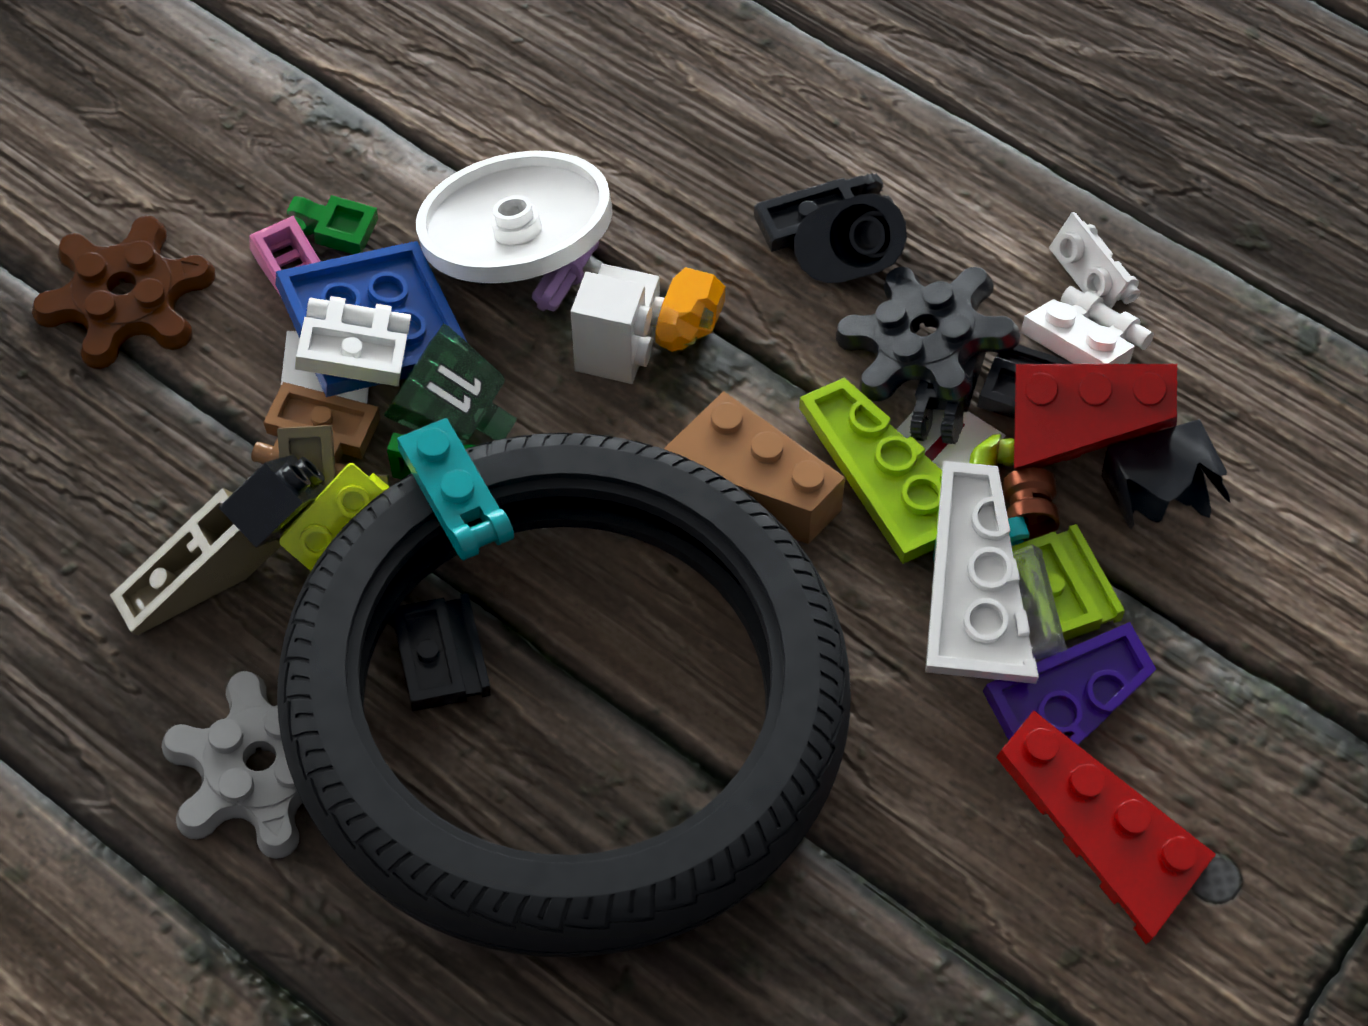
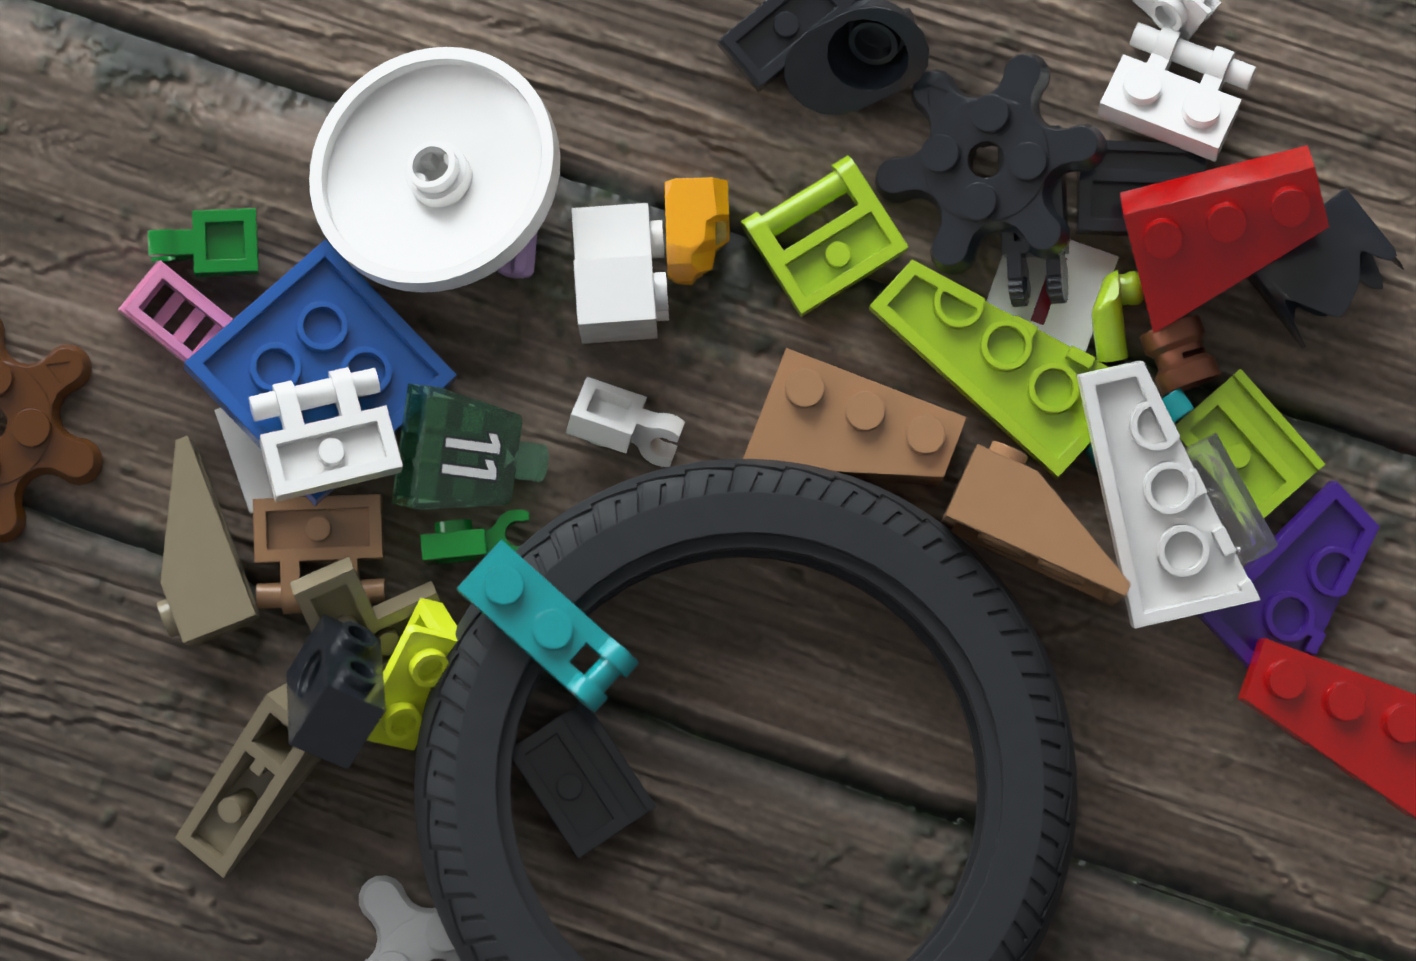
camera: 20 degrees left, 25 degrees up
(224, 410) = (200, 564): none -> dark tan slope
(576, 414) = (618, 417): none -> white plate
(785, 361) = (833, 254): none -> lime plate
(868, 569) = (1022, 519): none -> medium nougat slope

